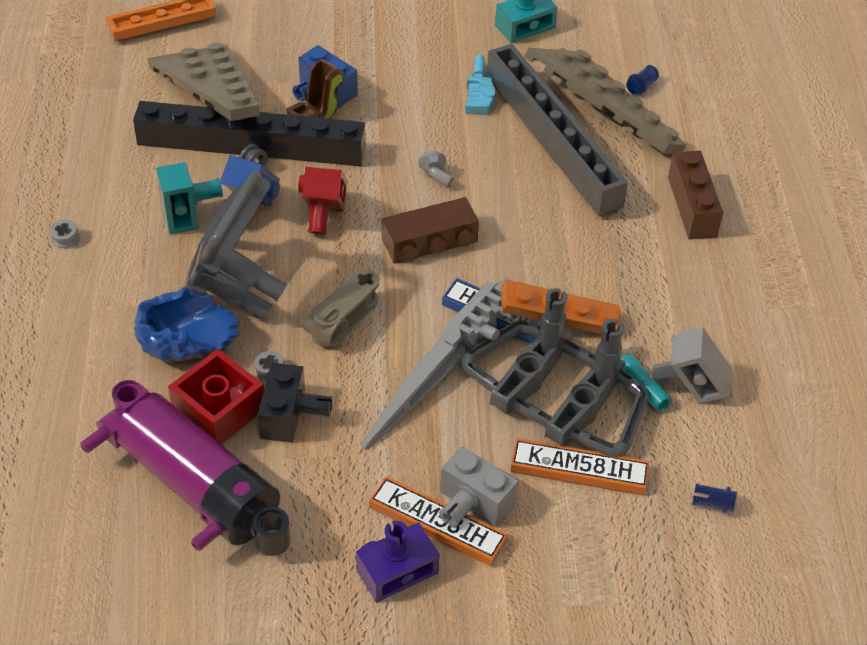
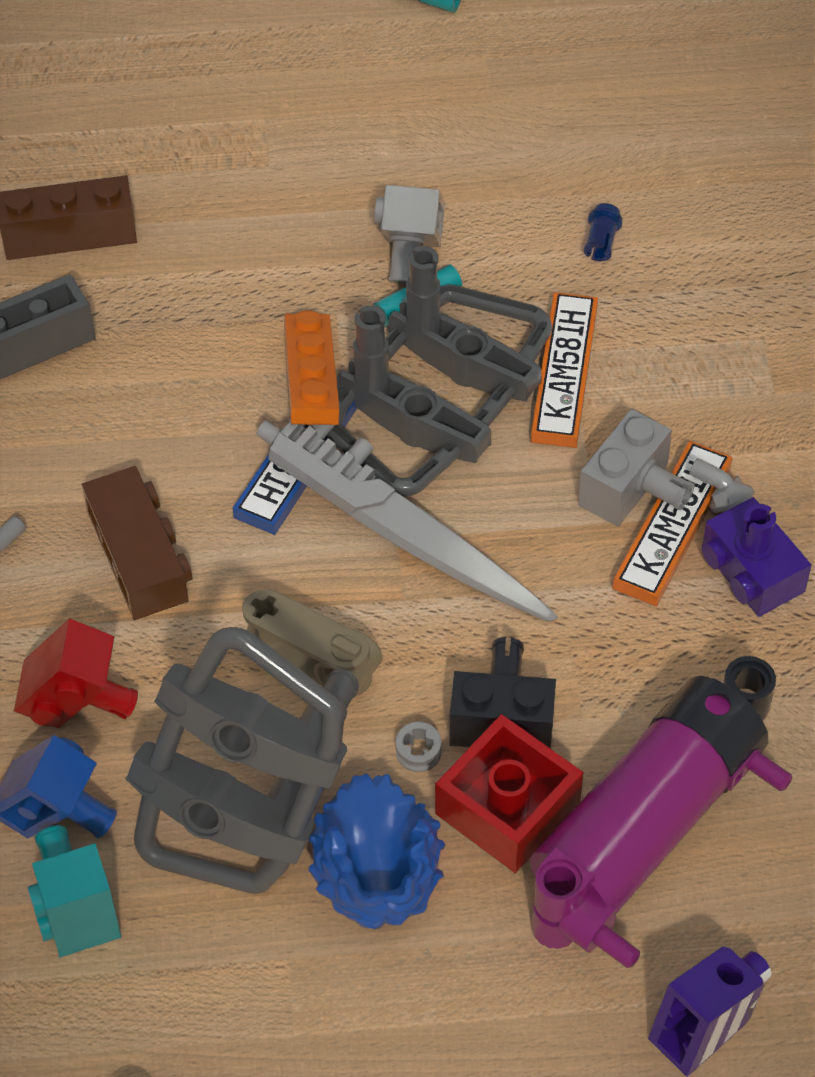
camera: 90 degrees left, 5 degrees up
(48, 488) = (708, 1006): none -> dark purple torso
(455, 553) = (728, 491): none -> light grey plate

